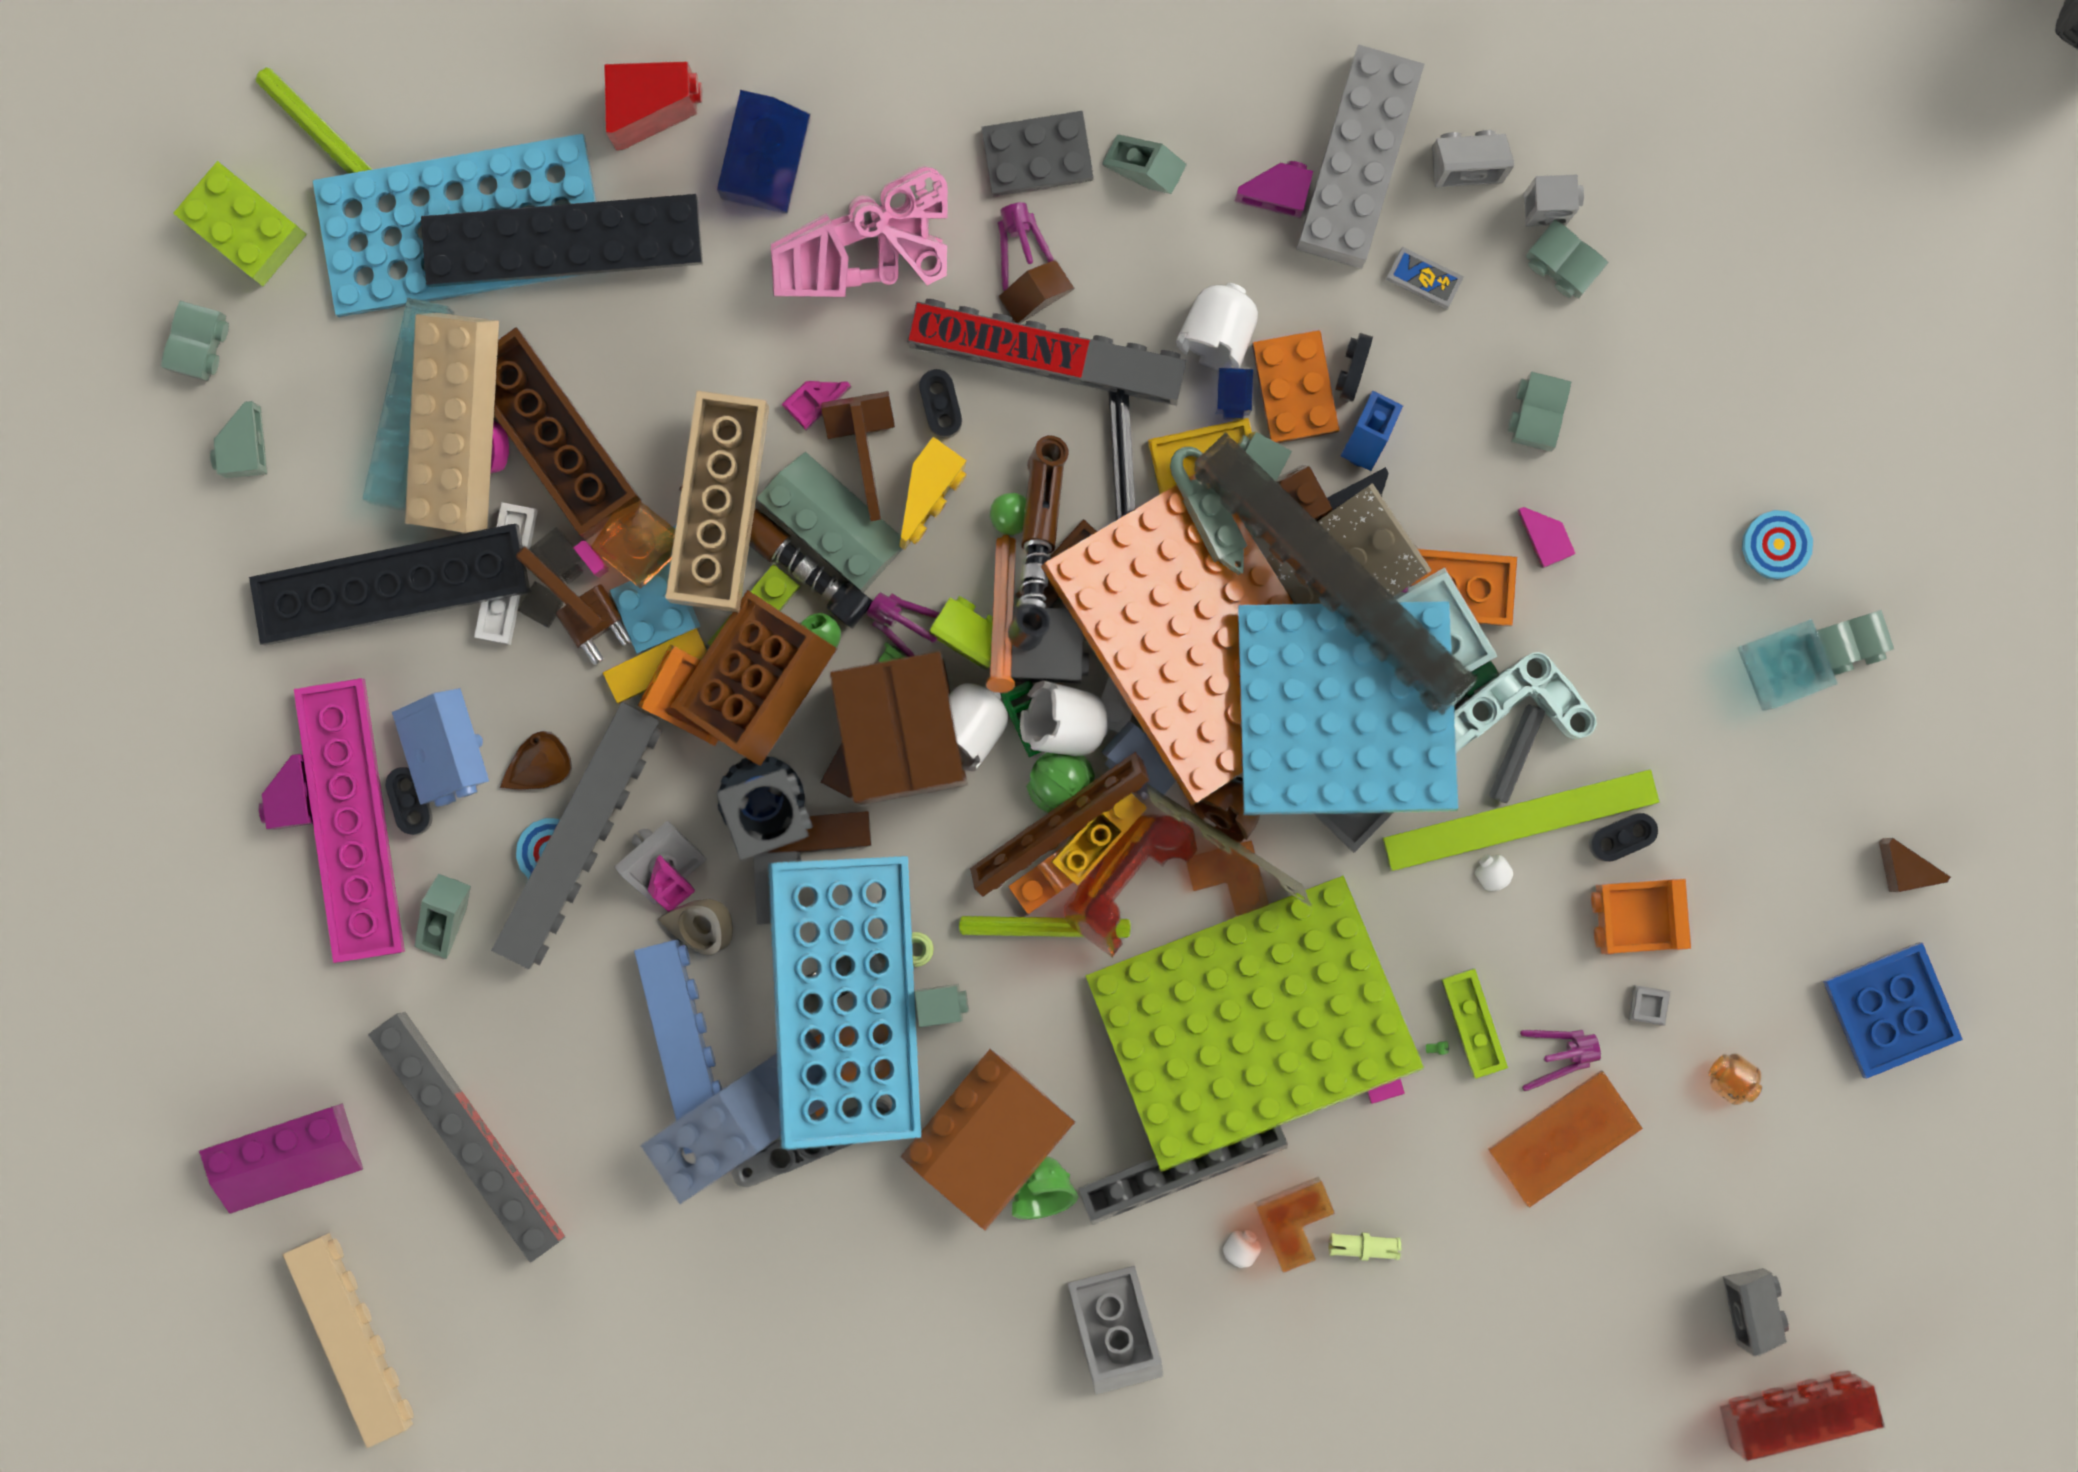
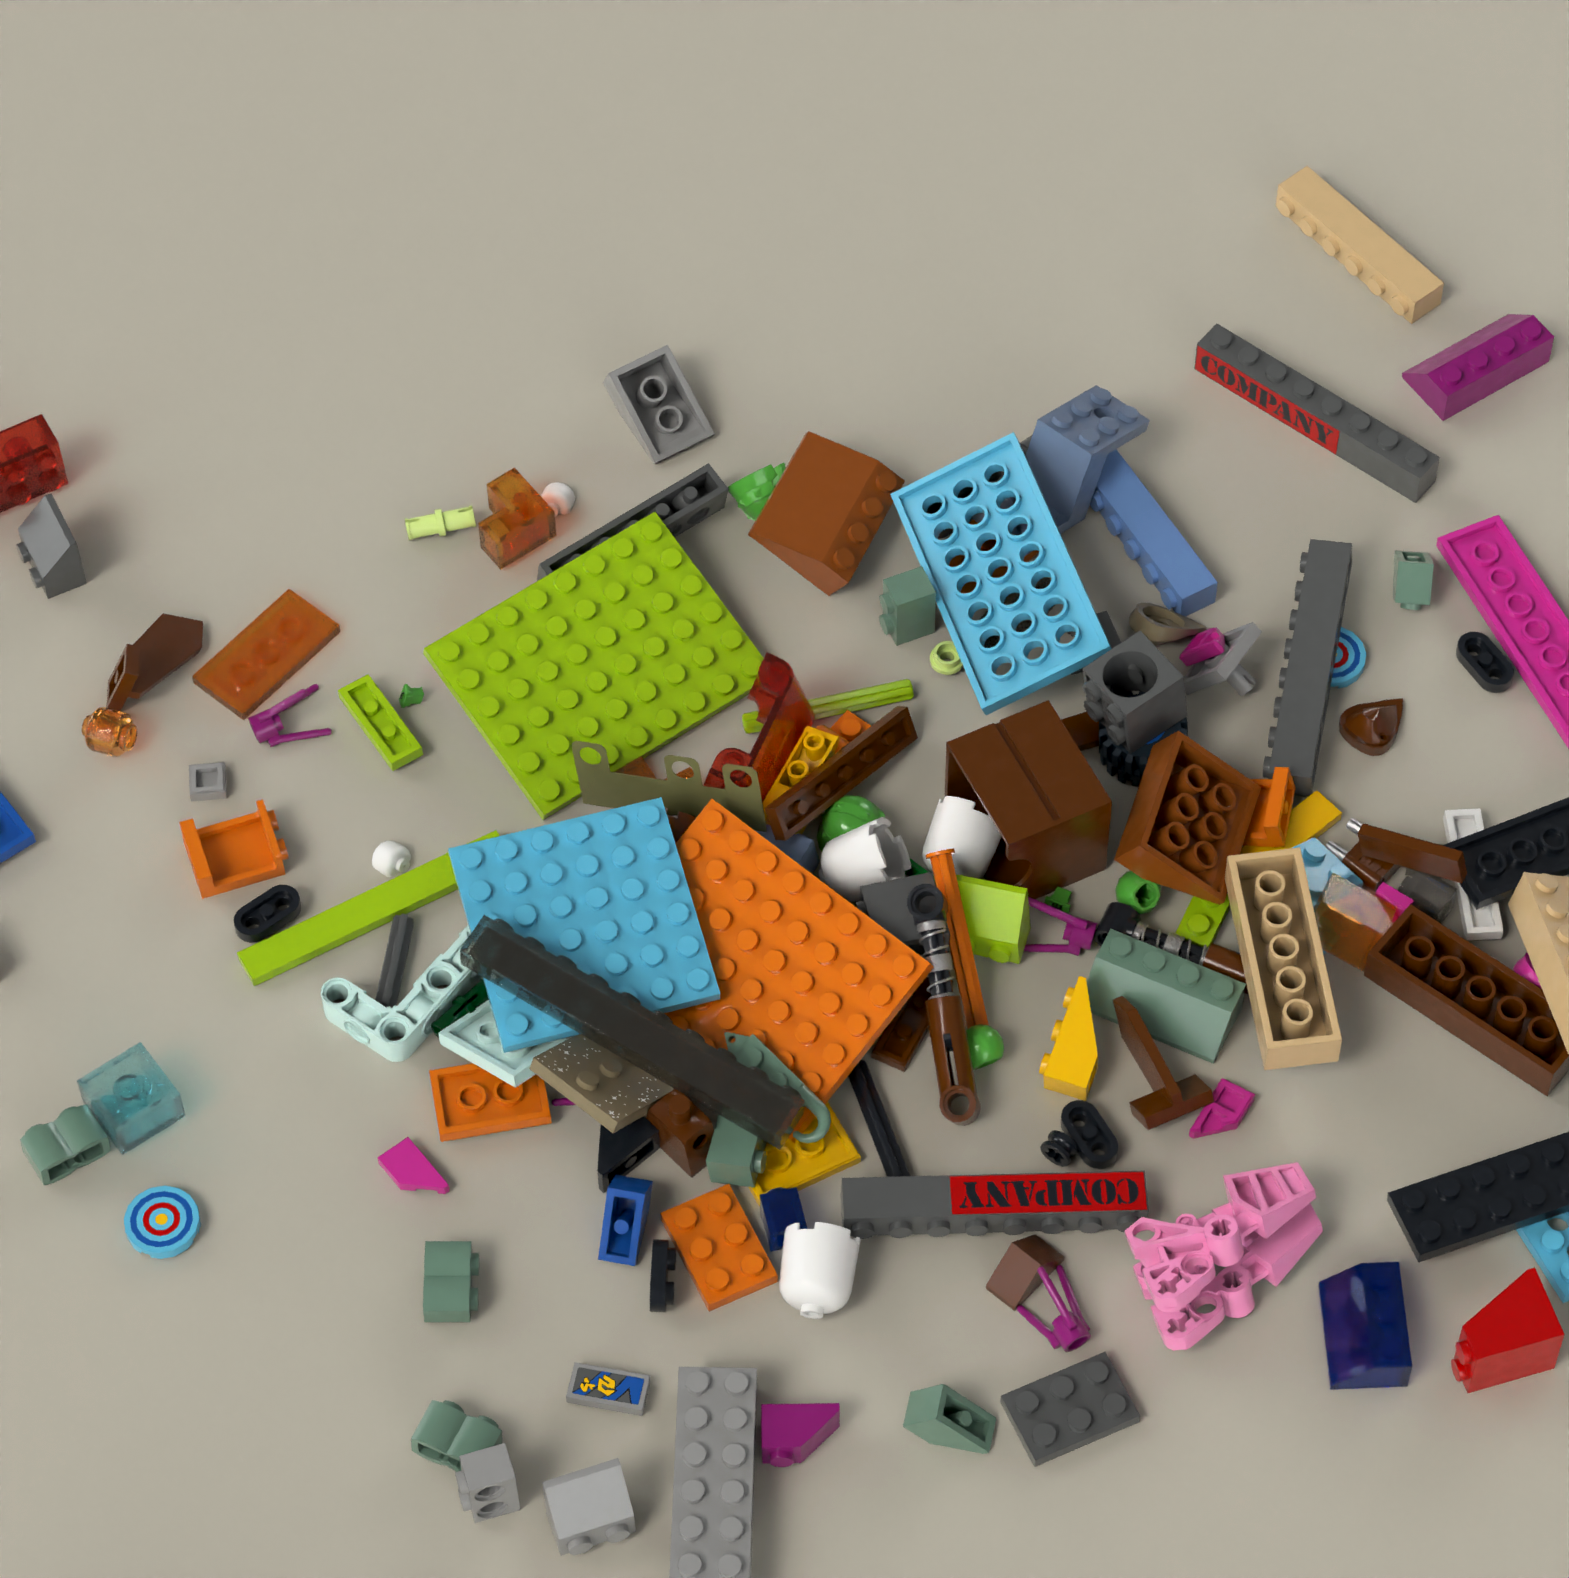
camera: 165 degrees right, 30 degrees down
(441, 747) = (1470, 702): medium blue piece -> none
(971, 396) = (1059, 1148): none -> black bush
(1675, 1156) = (153, 657): none -> reddish brown piece

